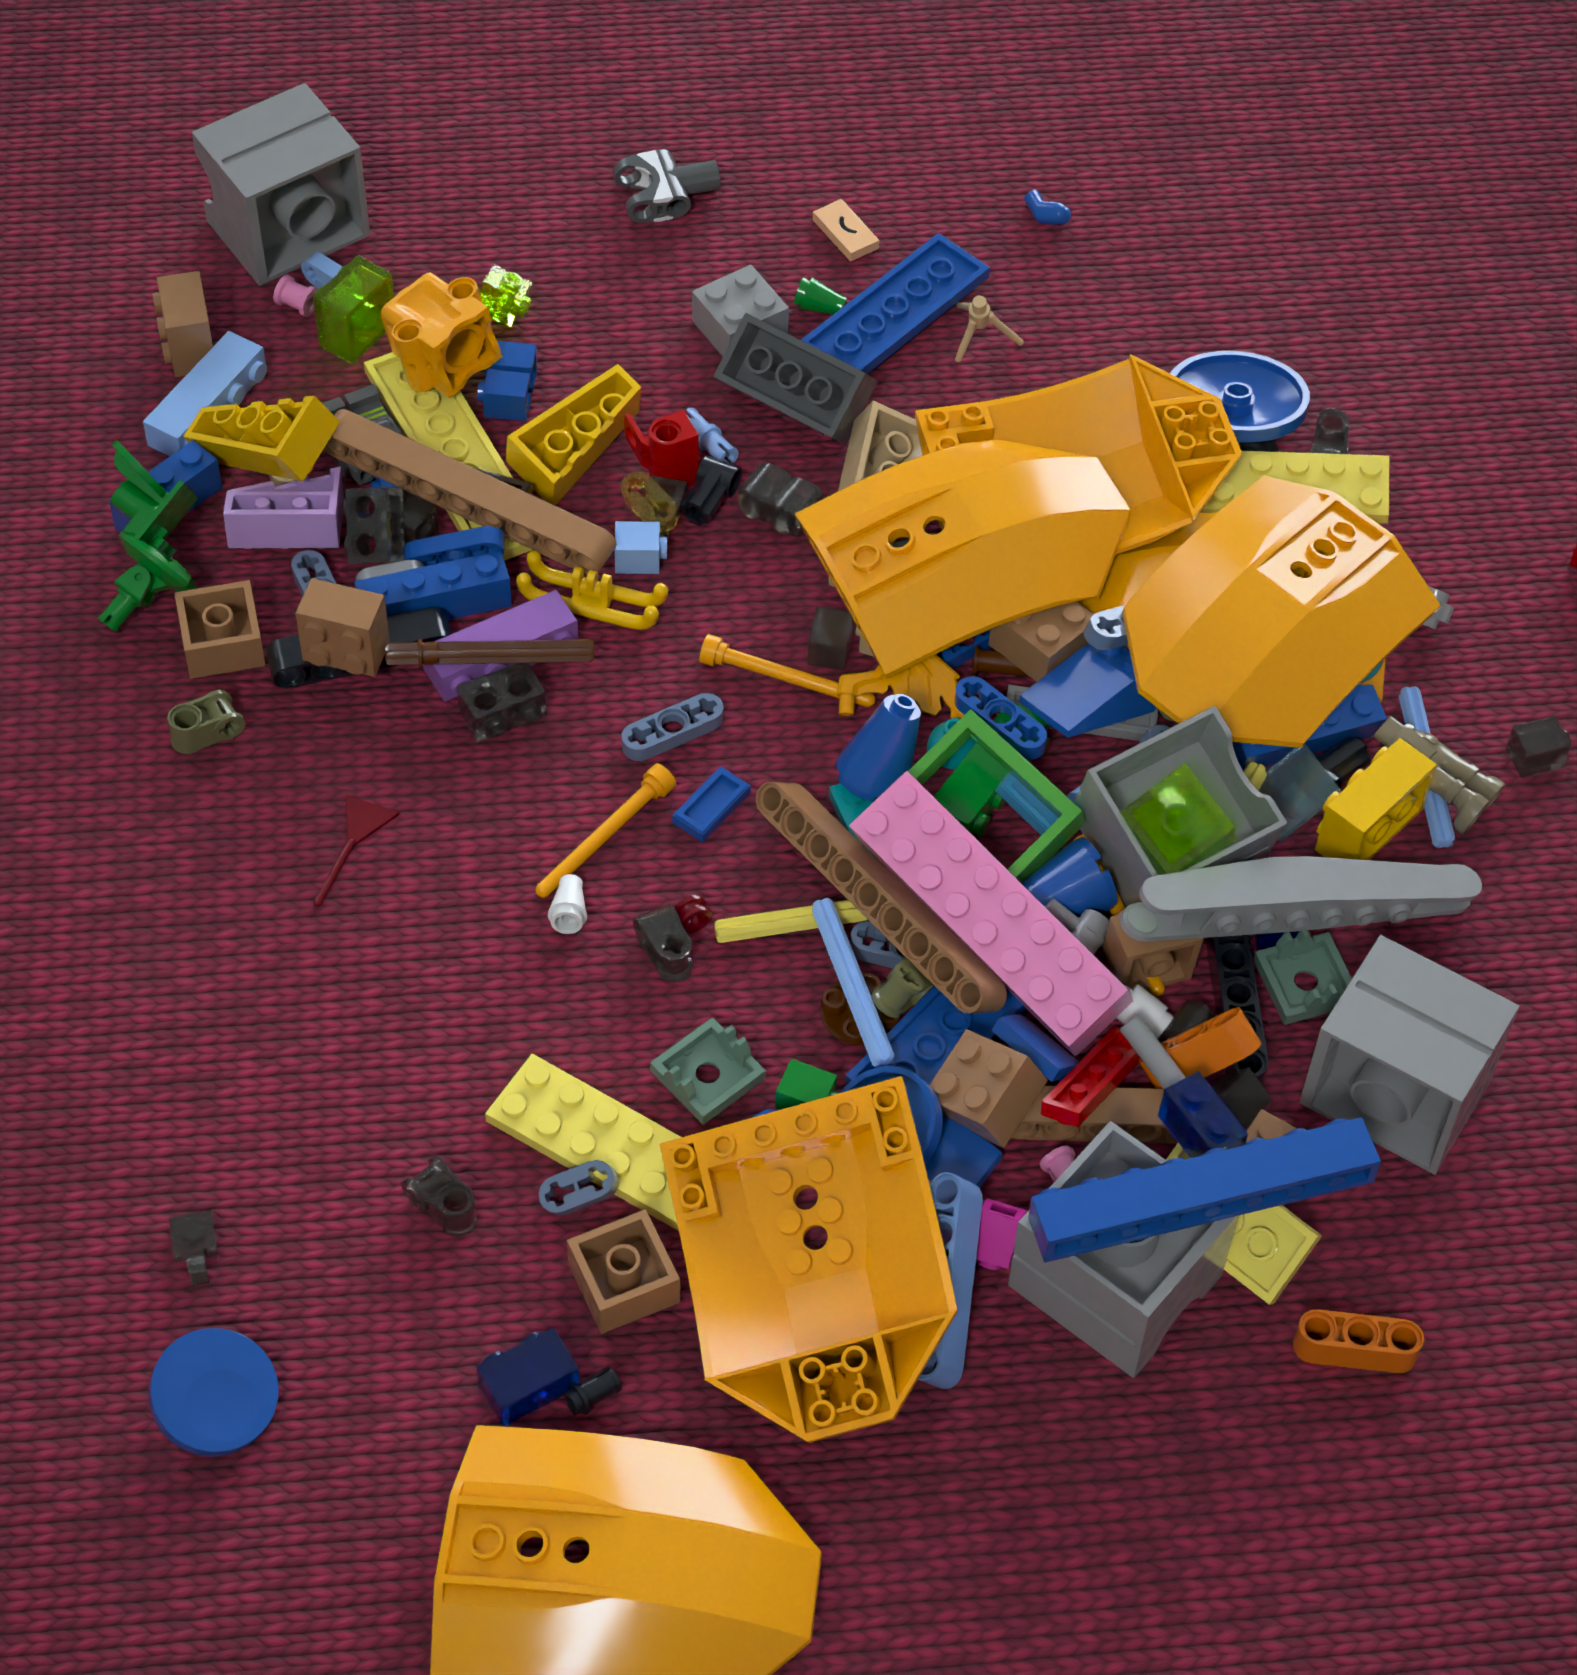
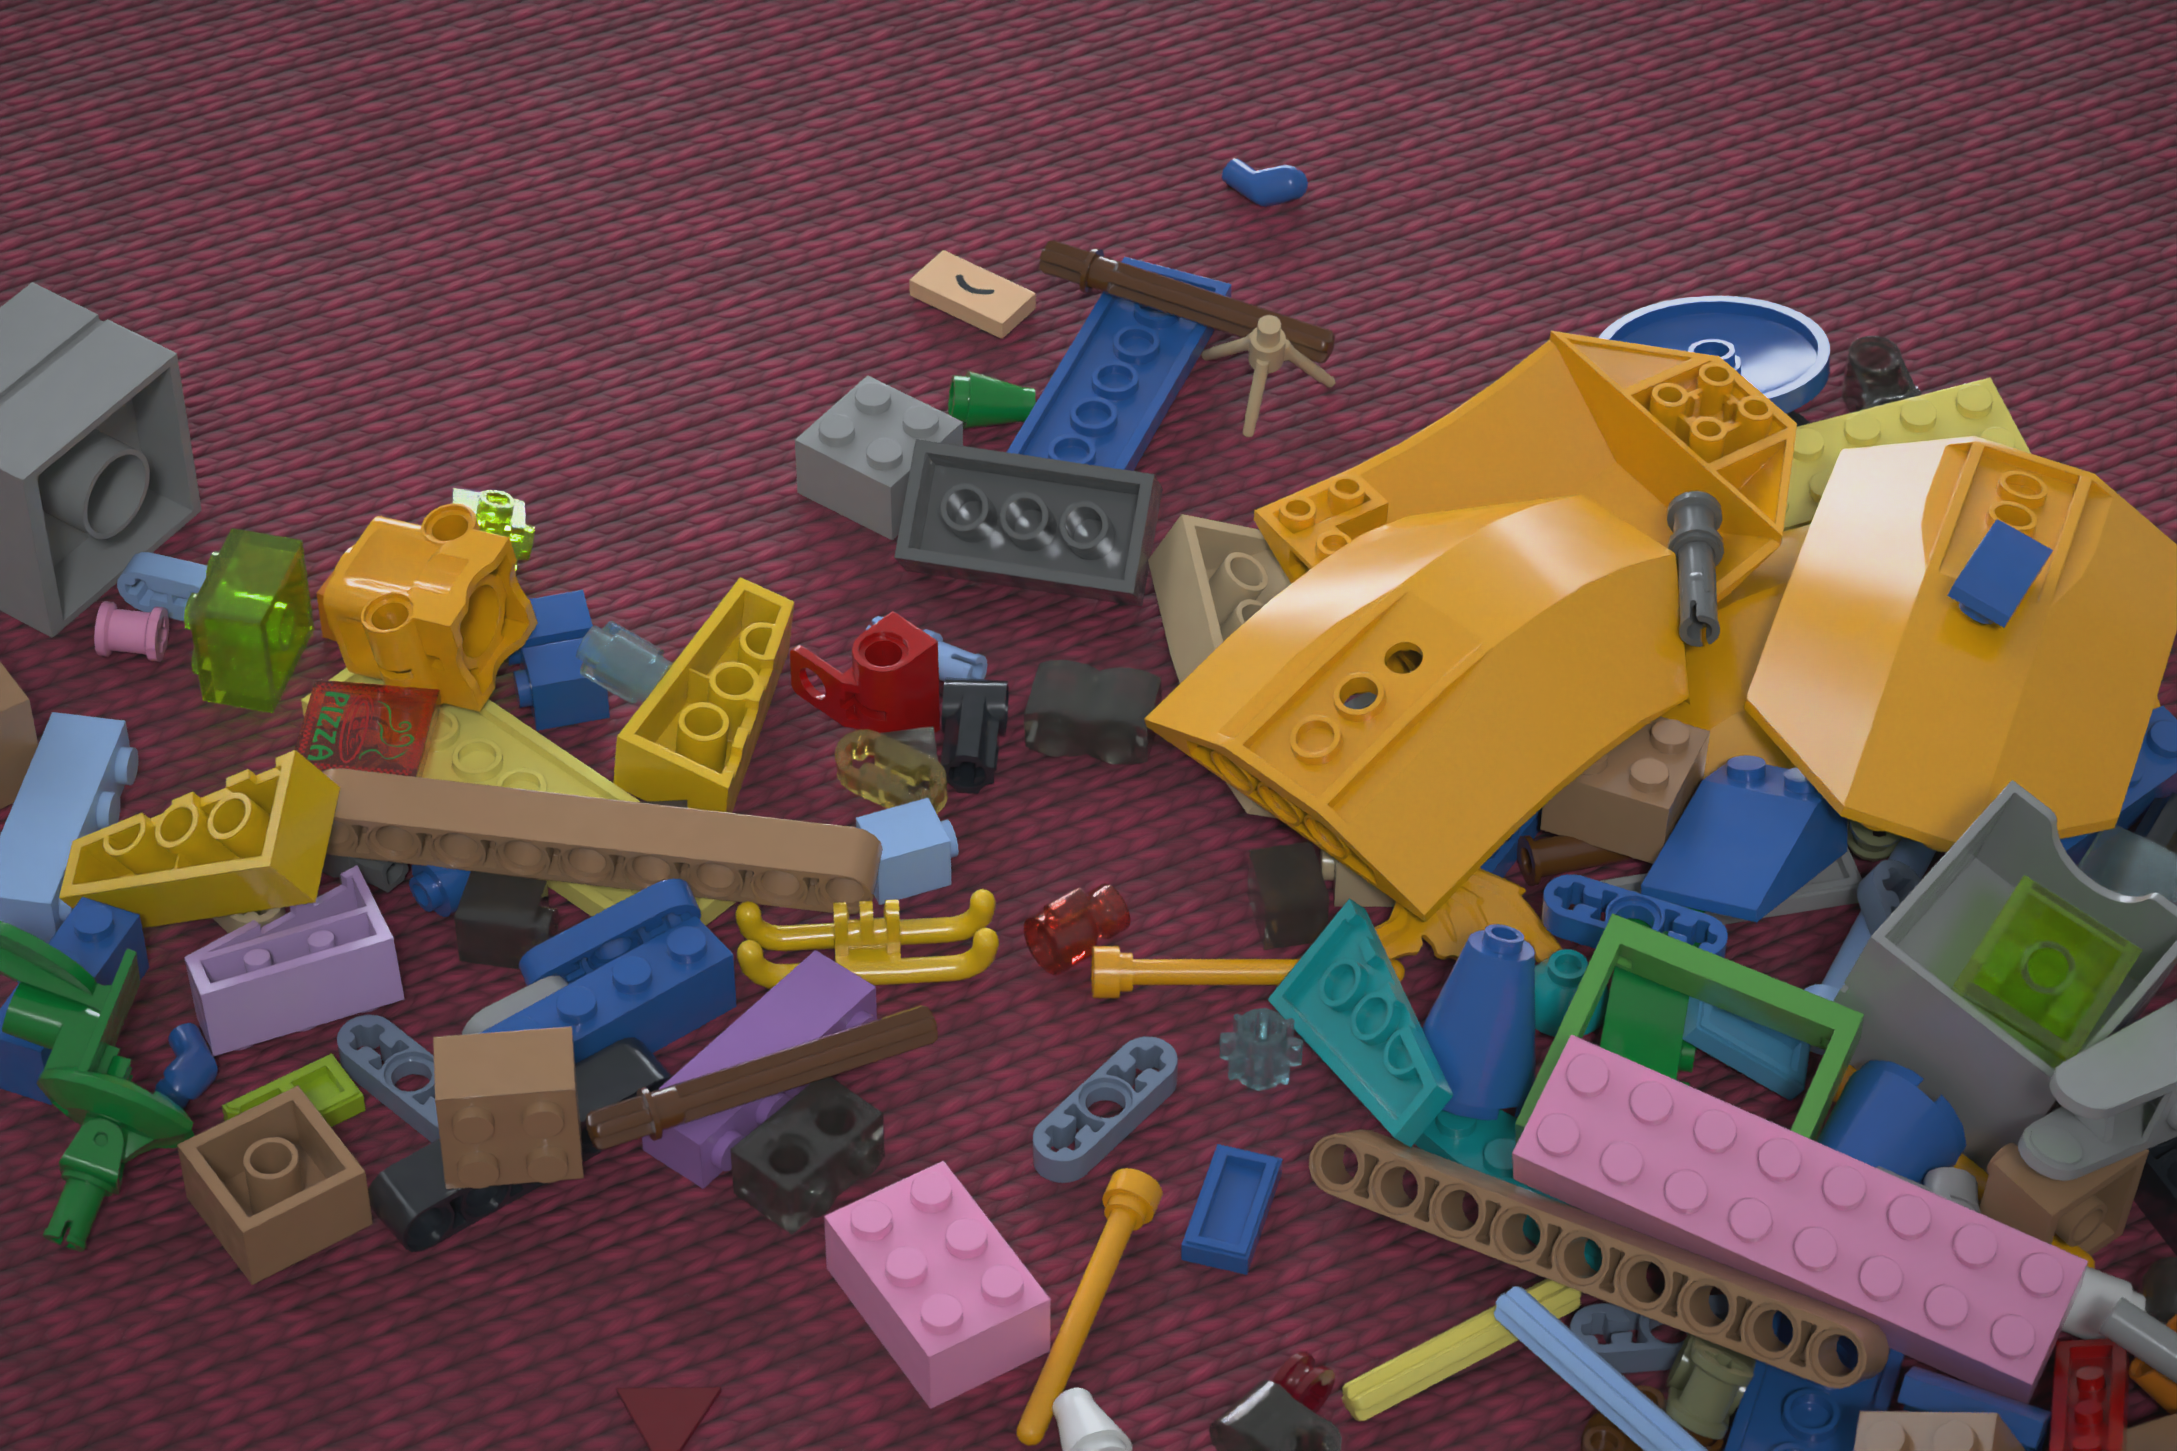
camera: 20 degrees left, 10 degrees down
(204, 722) = (317, 1346): olive piece -> none
(211, 553) = (192, 1068): none -> blue arm
(268, 586) = (323, 1084): none -> lime tile
(380, 393) = (369, 727): none -> clear red tile
(384, 525) = (478, 933): clear smoke brick -> none
(530, 393) = (621, 662): none -> clear light blue brick
(531, 794) = (937, 1284): none -> bright pink brick
(664, 184) = (652, 303): dark grey connector -> none
(700, 619) = (1071, 925): none -> clear red piece
(769, 720) = (1261, 1049): none -> clear light blue gear
(824, 726) = (1364, 1025): none -> teal wing
(914, 239) = (1176, 298): none -> reddish brown axle
(1101, 623) = (1735, 741): sand blue beam -> none
(1144, 512) = (1698, 550): none -> dark grey pin
(1286, 580) = (1999, 574): none -> blue slope

